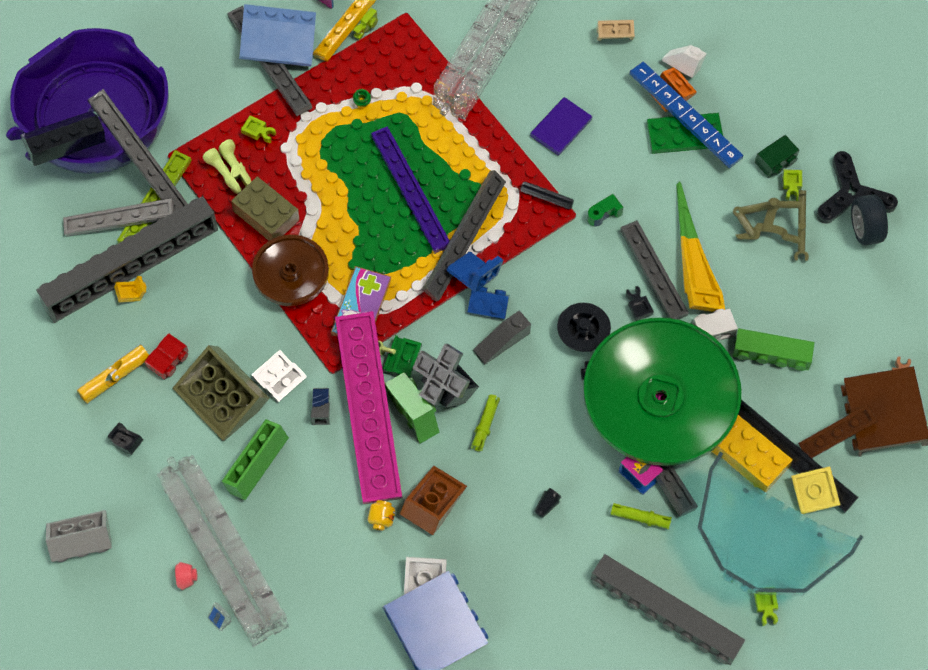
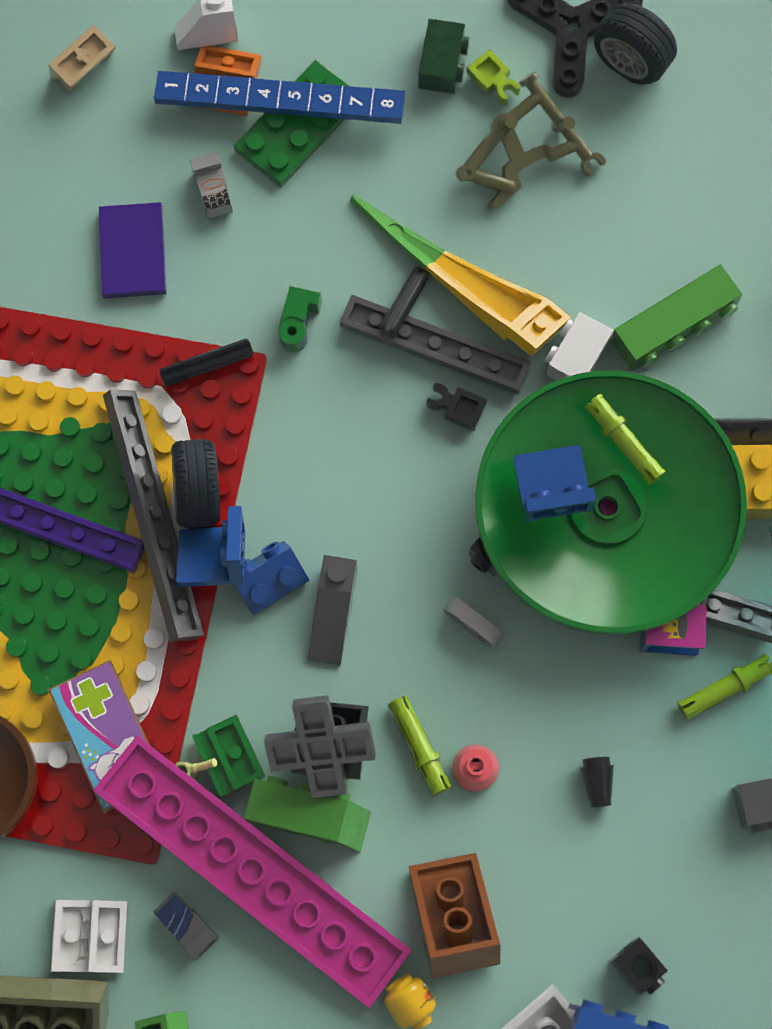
camera: 40 degrees left, 10 degrees up
(490, 580) = (624, 960): none -> black brick
(493, 235) = (195, 483): none -> black wheel
(500, 453) = (464, 766): none -> coral cone
(557, 394) = (473, 622): none -> light grey beam
(583, 326) = (423, 501): black wheel -> none
(621, 127) = (211, 185): none -> light grey leg
(642, 359) = (553, 483): none -> blue bracket
(656, 241) = (404, 303): none -> black axle
(692, 361) = (626, 441): none -> lime pin

